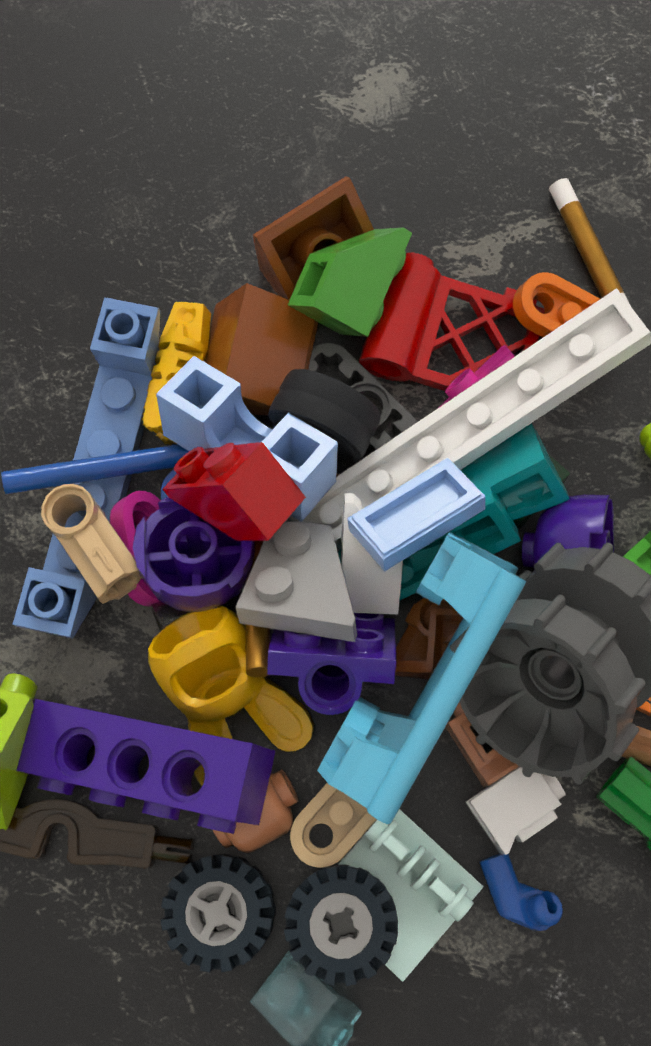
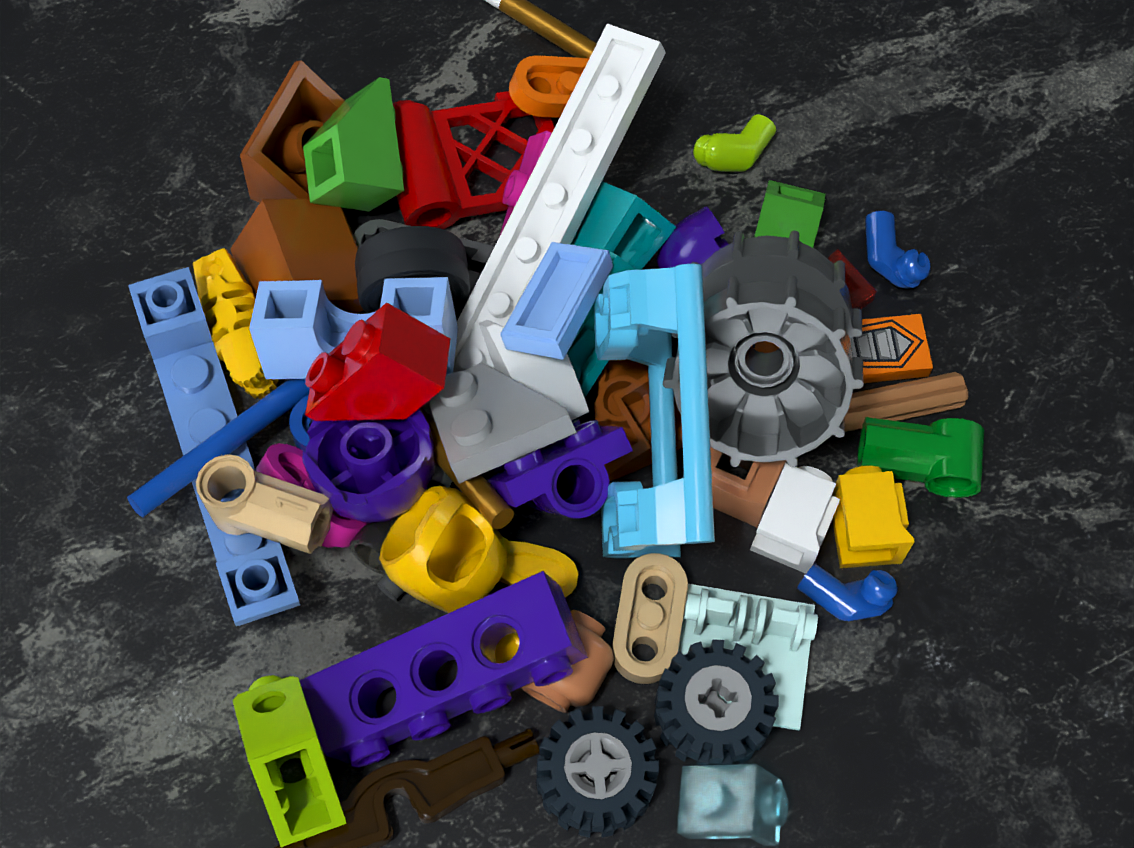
camera: 45 degrees left, 10 degrees down
(578, 843) = (870, 519): none -> yellow window

